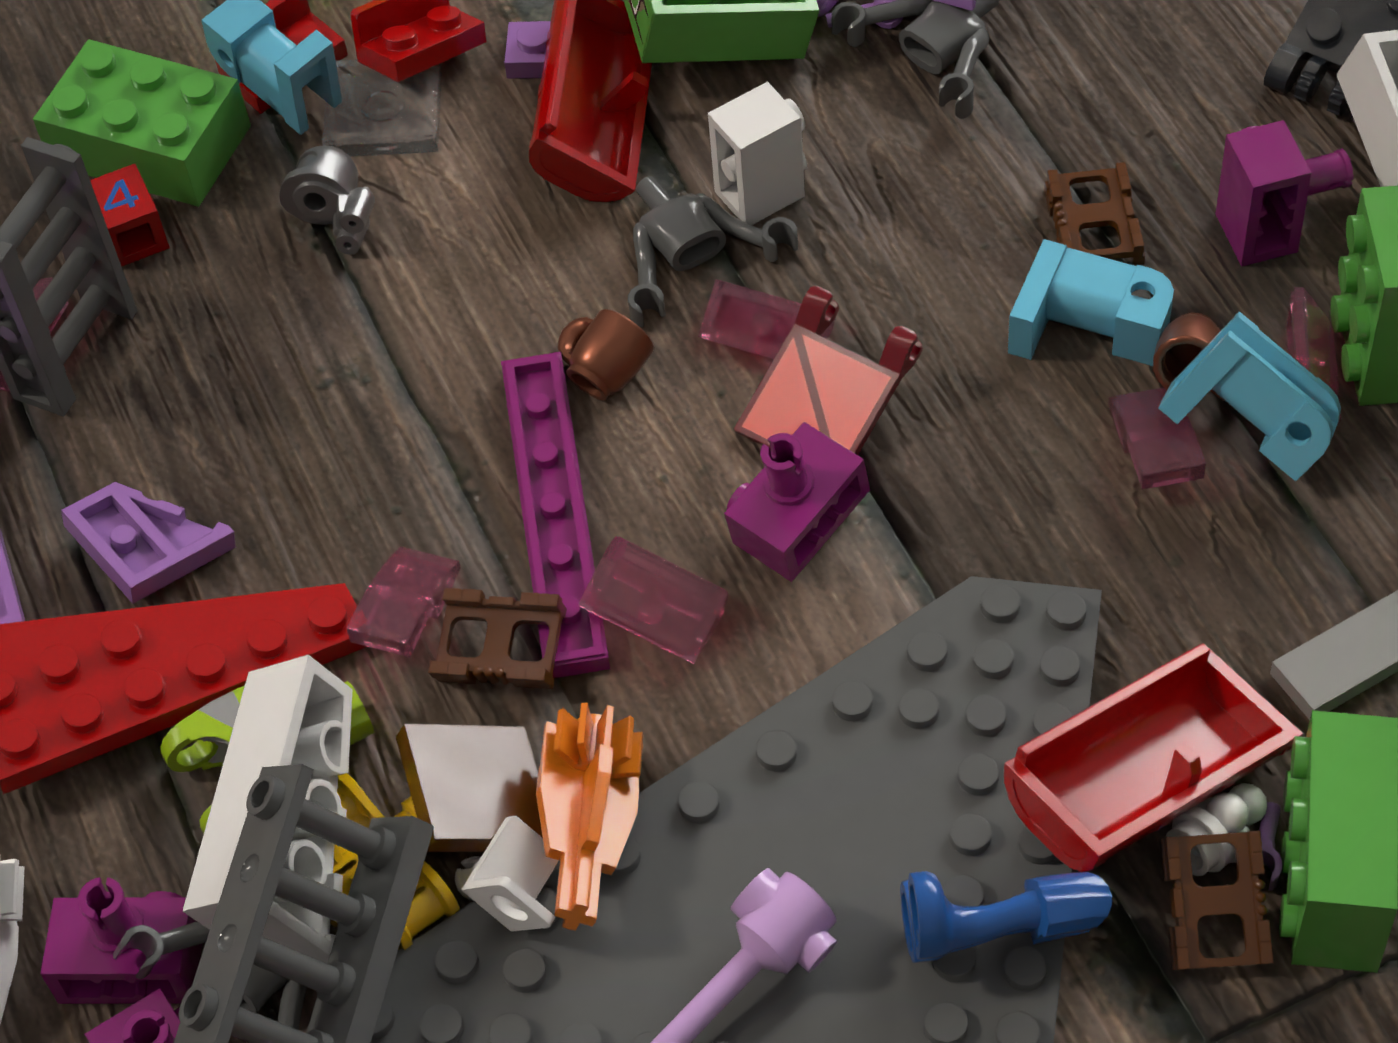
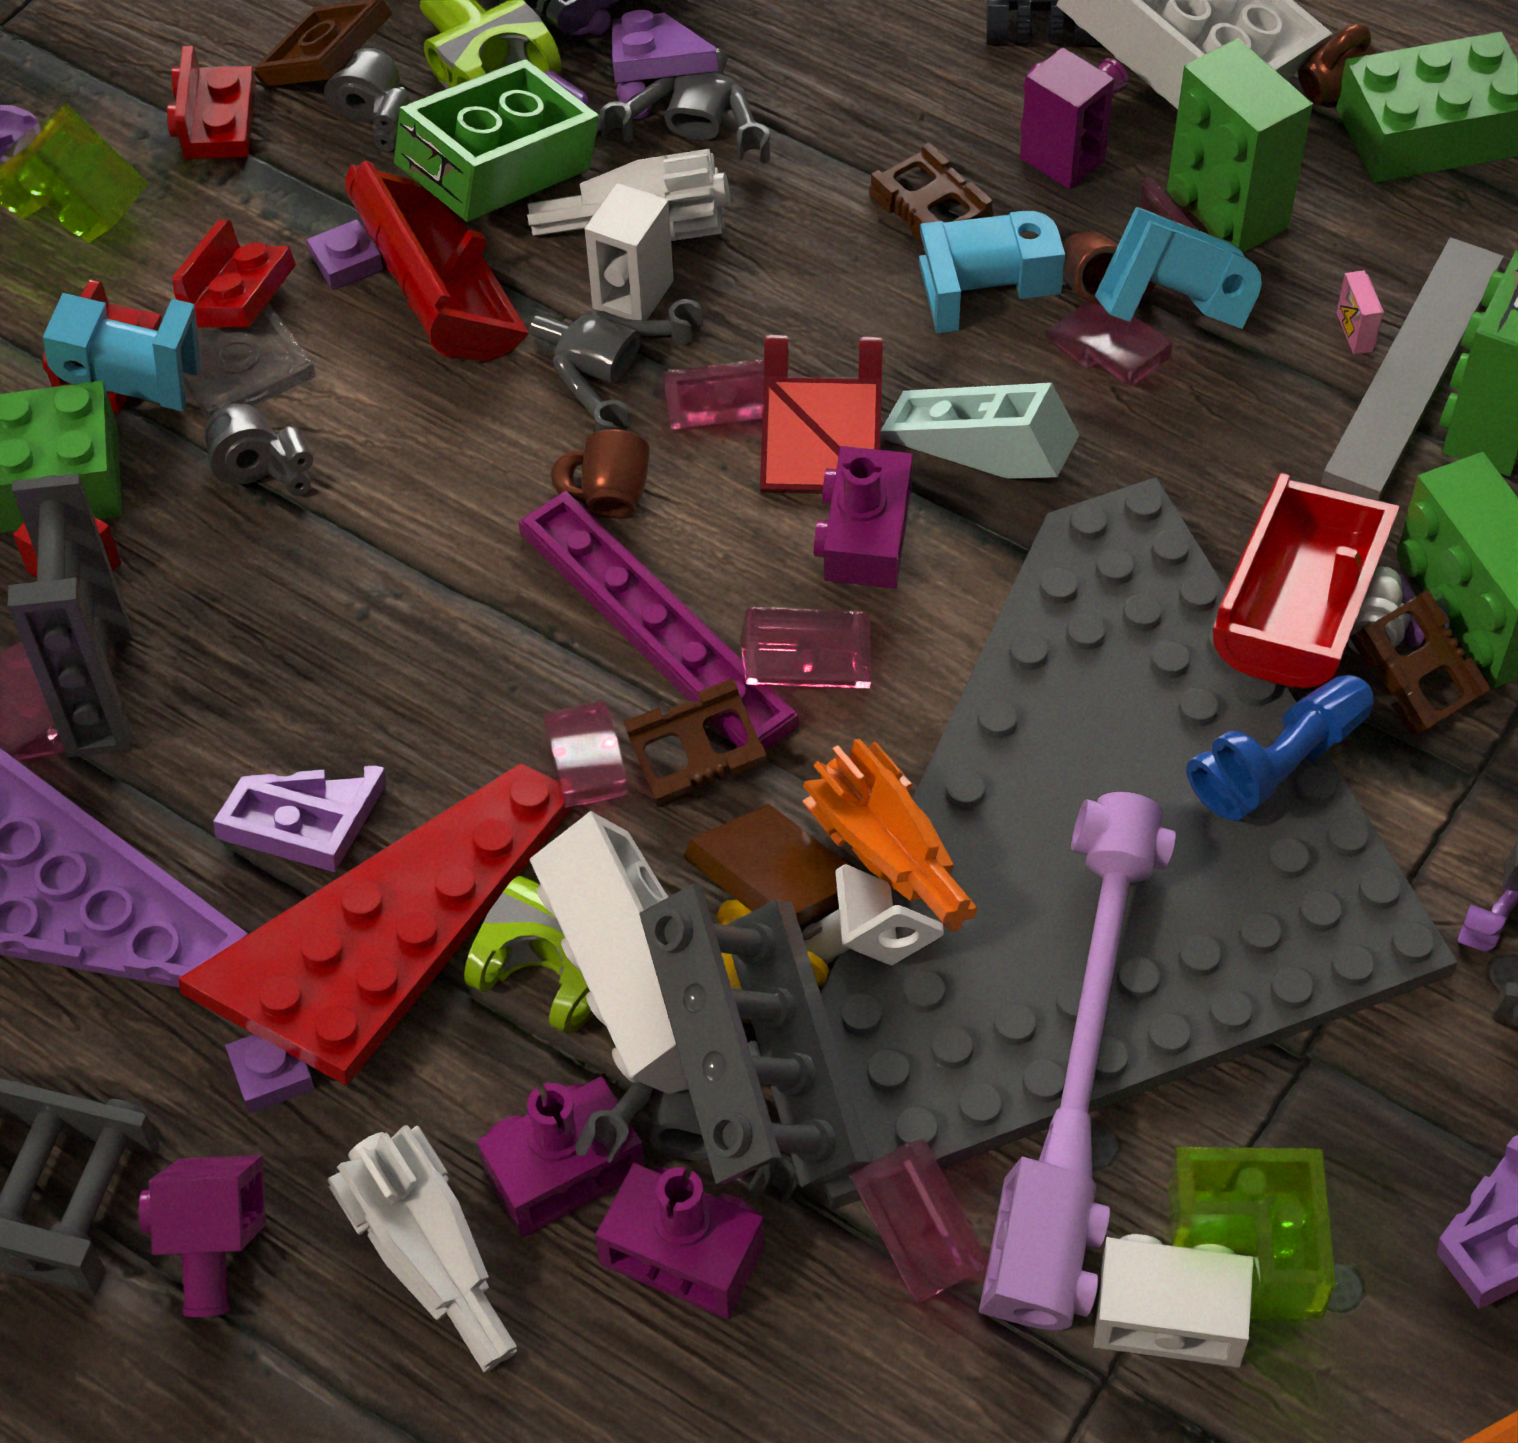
camera: 35 degrees left, 0 degrees up
(843, 112) = (684, 179): none -> white piece
(974, 468) = (988, 428): none -> light aqua slope

